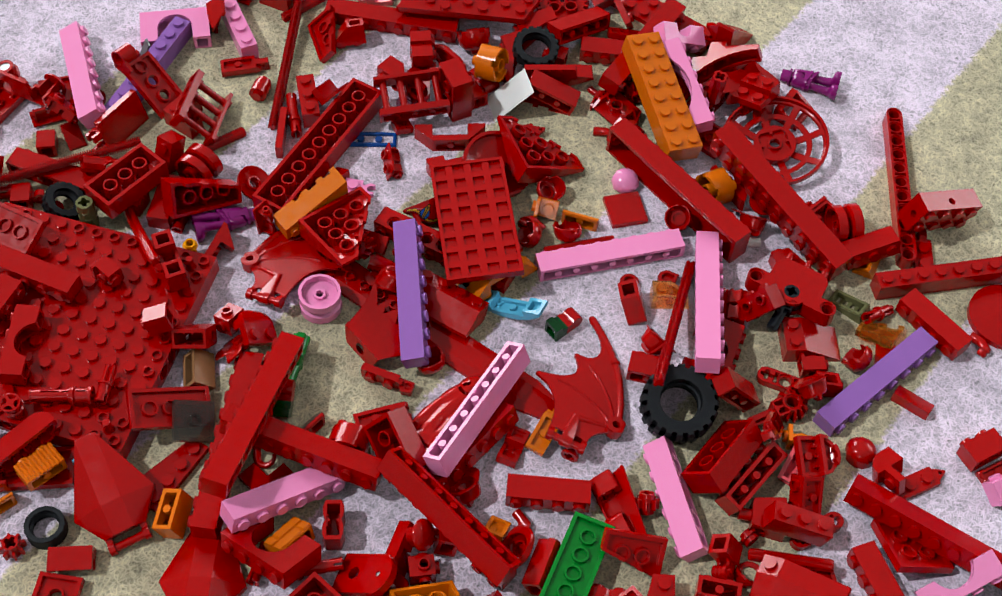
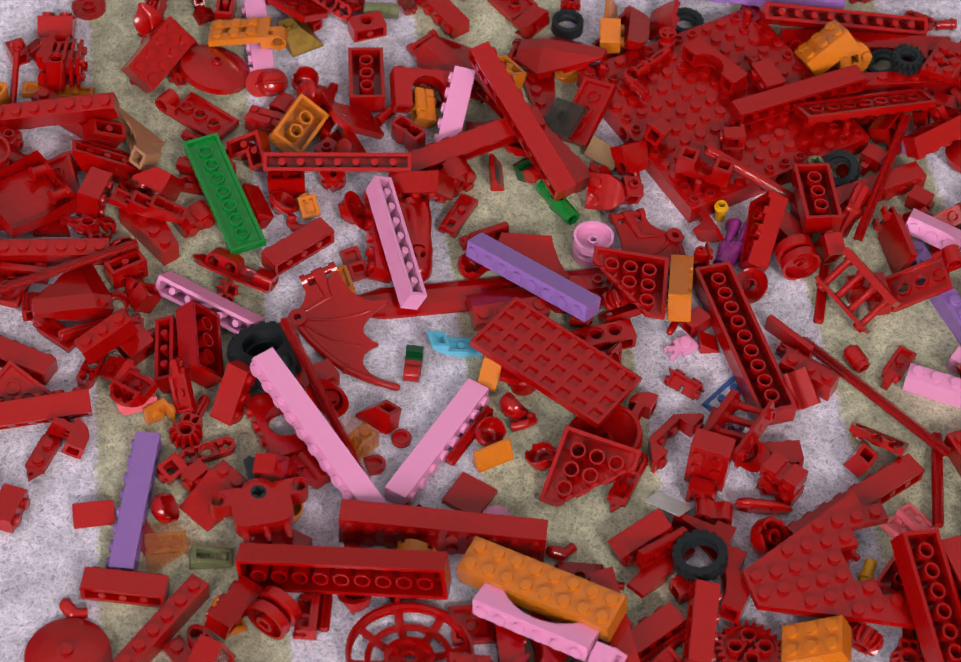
camera: 135 degrees right, 5 degrees down
(490, 63) = (711, 501): orange brick -> none
(545, 208) = (528, 438): orange bracket -> none
(637, 549) = (210, 240): red wing -> none
(716, 87) = (505, 638): red axle -> none
(811, 387) = (181, 440): red piece -> none
(860, 452) = (104, 443): red hair -> none
(877, 314) = (179, 563): red axle -> none

